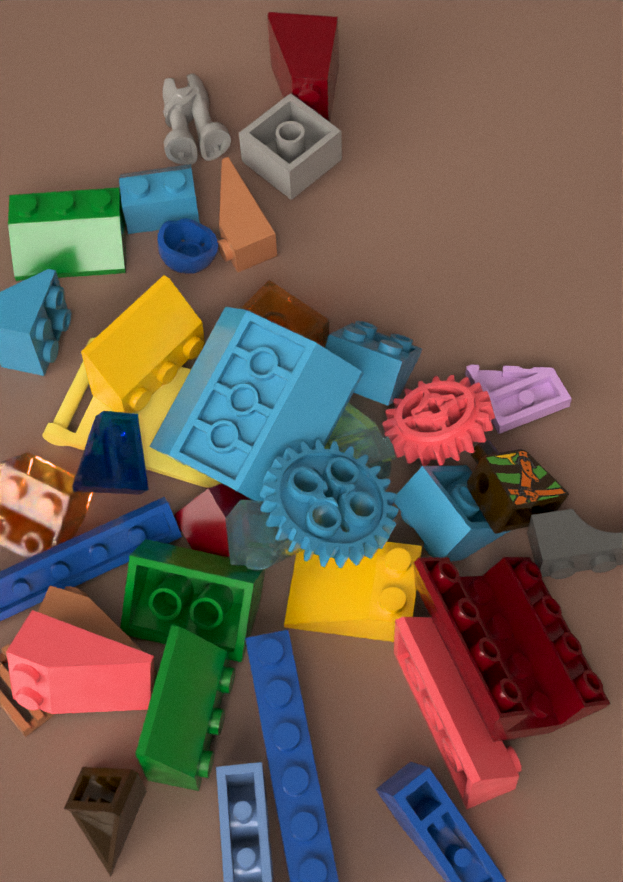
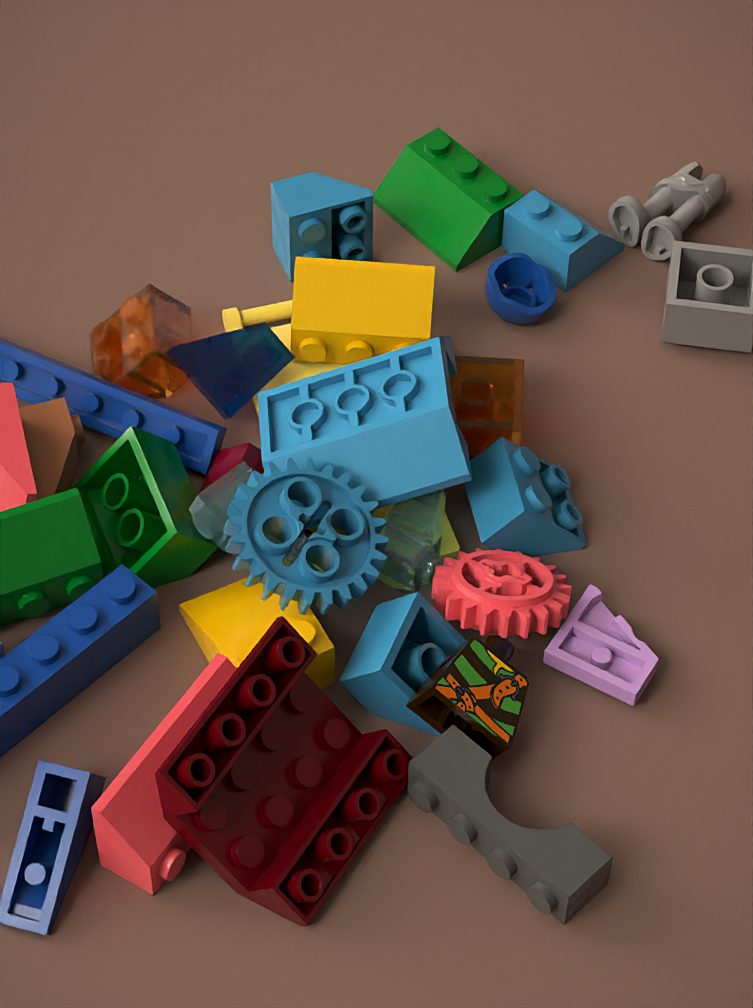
camera: 50 degrees right, 10 degrees down
(244, 230) = (588, 313): nougat slope -> none

